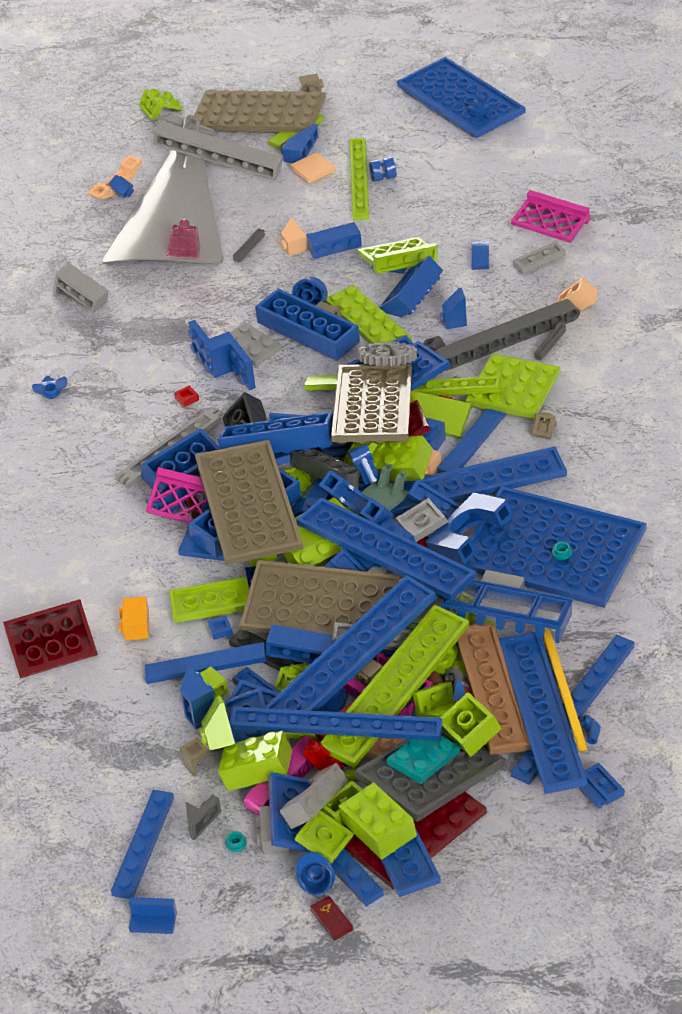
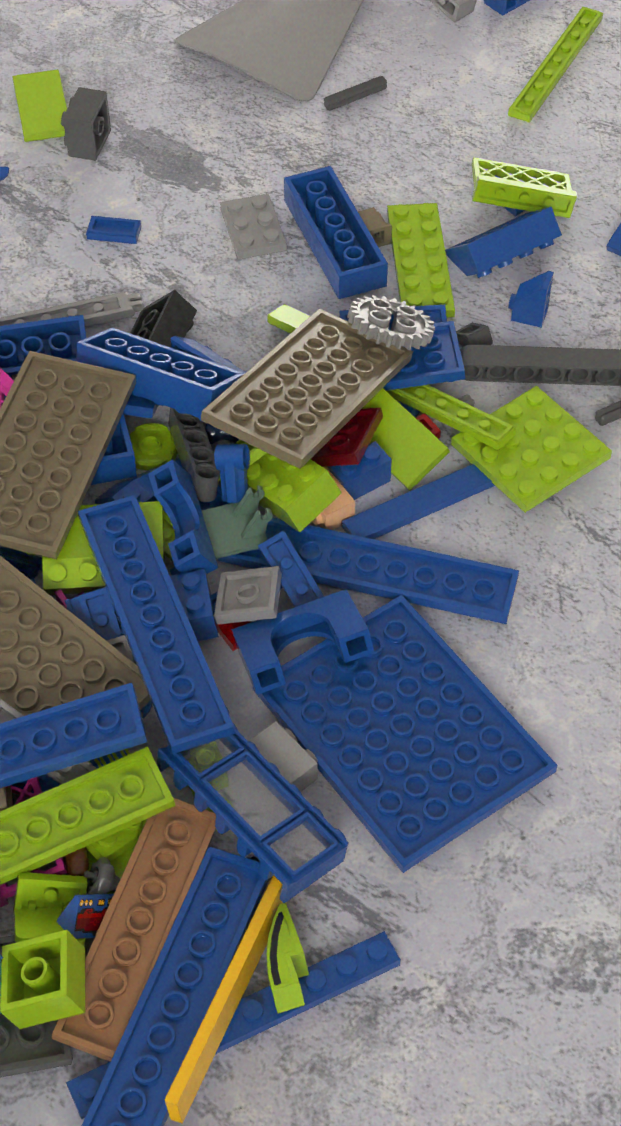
camera: 25 degrees right, 10 degrees up
(51, 333) = (40, 104): none -> lime tile
(79, 288) = (113, 61): light grey wedge -> none
(98, 329) = (86, 123): none -> dark grey brick
(164, 382) = (113, 229): none -> blue tile
(184, 241) = (270, 53): clear pink torso -> none
(186, 396) = (120, 261): red plate -> none
(221, 355) = (196, 224): blue bracket -> none
(293, 238) = (410, 107): light nougat slope -> none
(311, 290) = (371, 188): blue cylinder -> none
(312, 167) = (510, 25): light nougat tile -> none
(334, 240) = (459, 132): blue brick -> none
(388, 168) = (599, 62): blue wheel -> none
(544, 425) = (528, 529): dark tan bracket -> none
(562, 551) = (404, 741): teal plate -> none
(581, 665) = (285, 961): none -> lime slope
(592, 727) = (235, 1076): blue arm -> none

